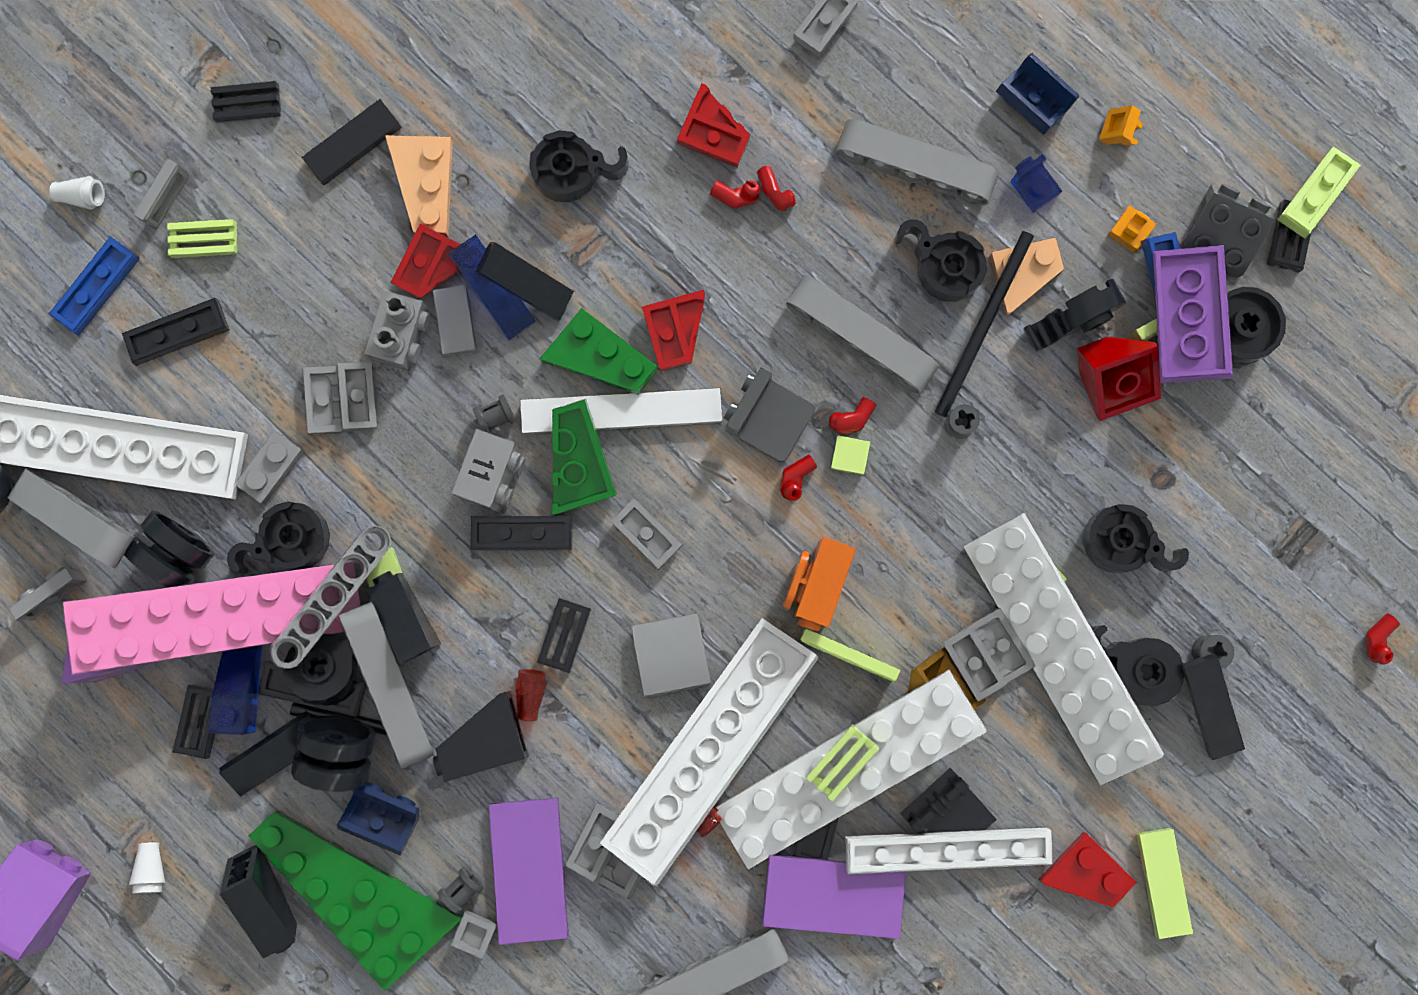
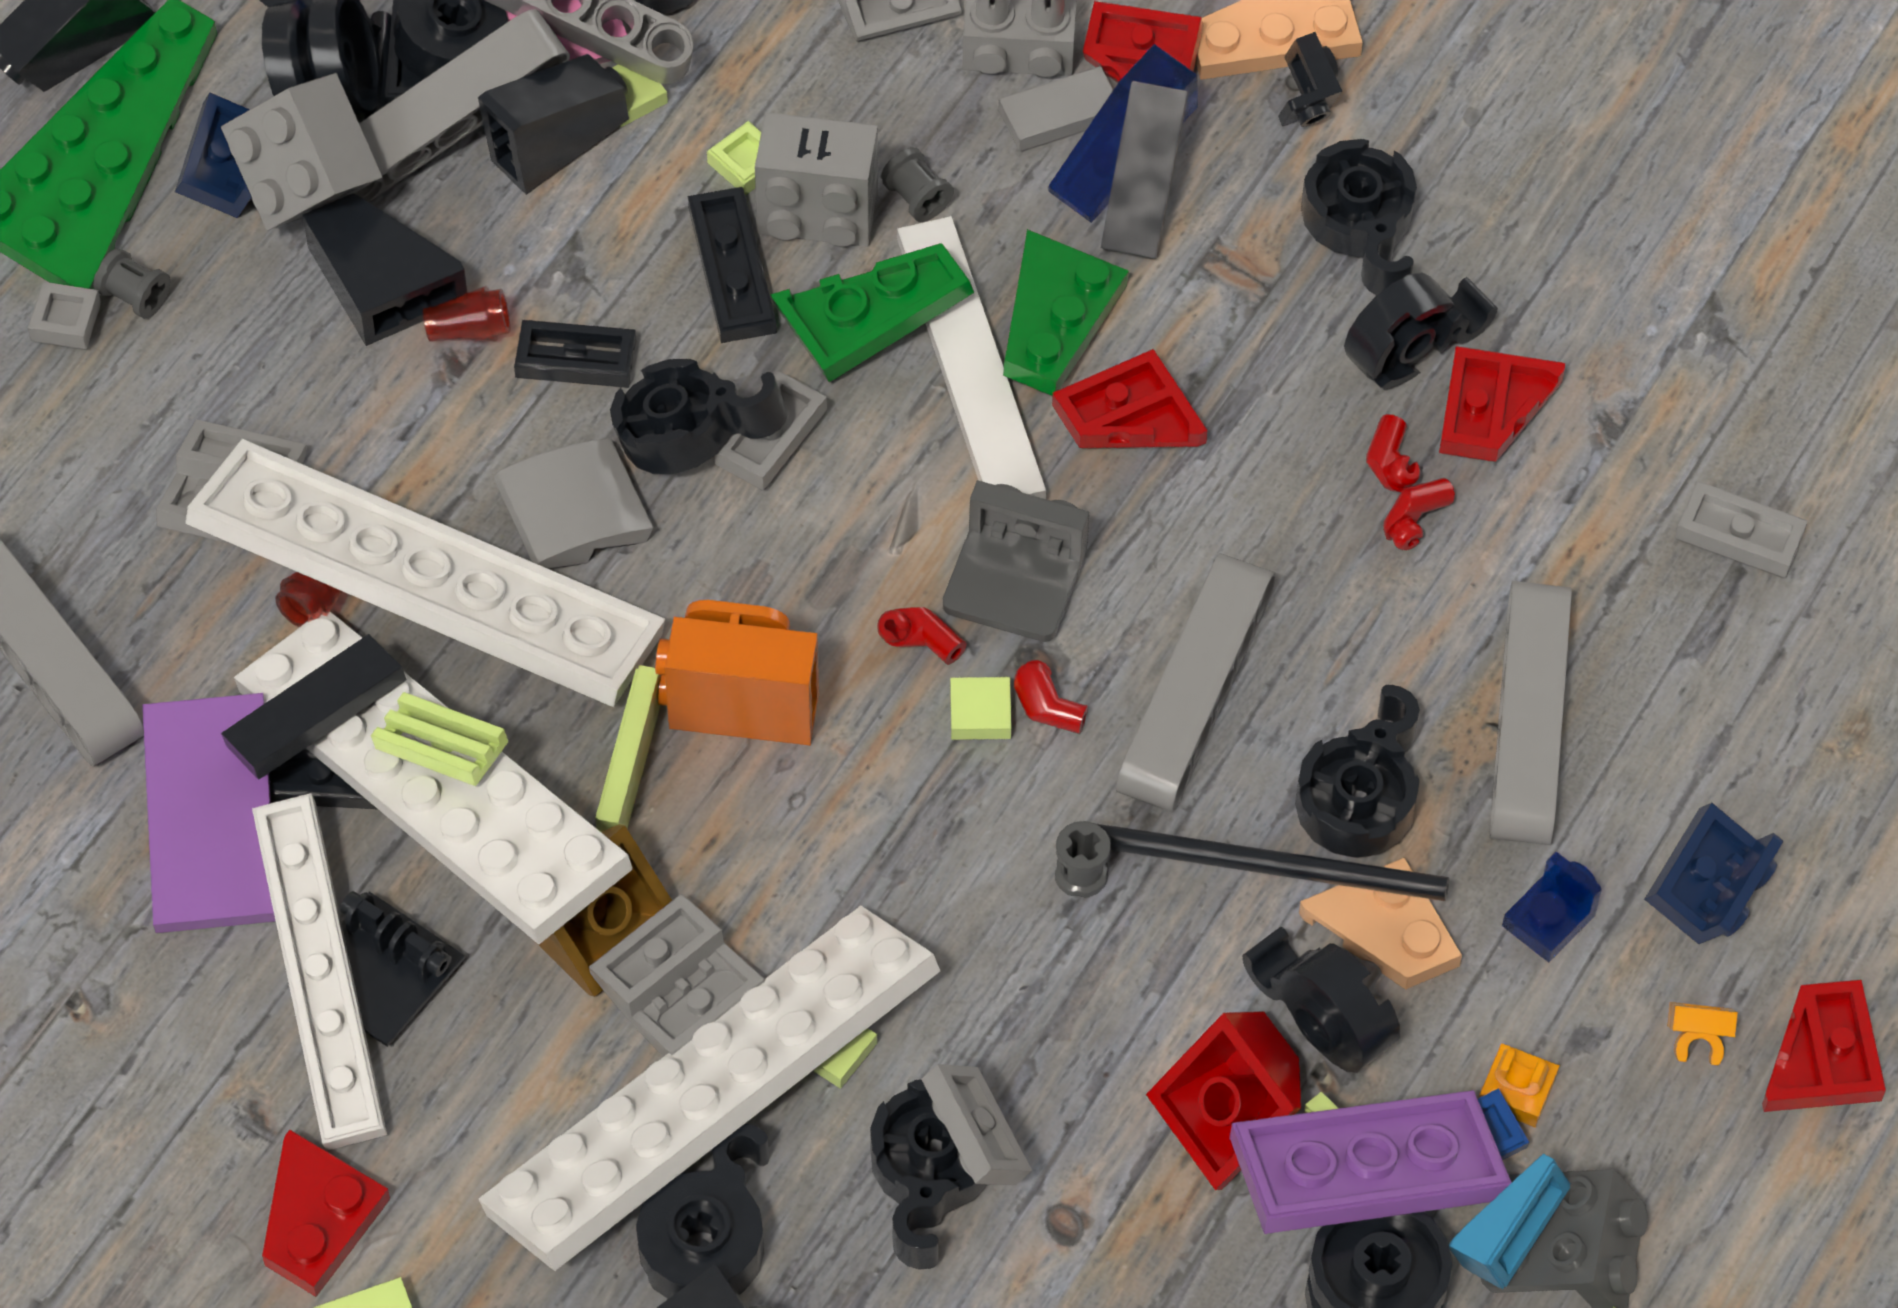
camera: 75 degrees right, 25 degrees down
(407, 777) = (301, 151): none -> light grey brick
(447, 510) = (736, 157): none -> yellowish green tile
(473, 169) = (1315, 76): none -> black bracket
(528, 871) = (178, 374): medium lavender tile -> none
(639, 569) = (687, 415): none -> black piece
(663, 156) = (1409, 321): none -> black piece
(795, 830) = (313, 706): none -> black tile
(1134, 514) = (976, 1125): none -> light grey plate
(1146, 69) = (1826, 1051): none -> red wing
(1239, 259) = (1511, 1223): none -> dark azure slope

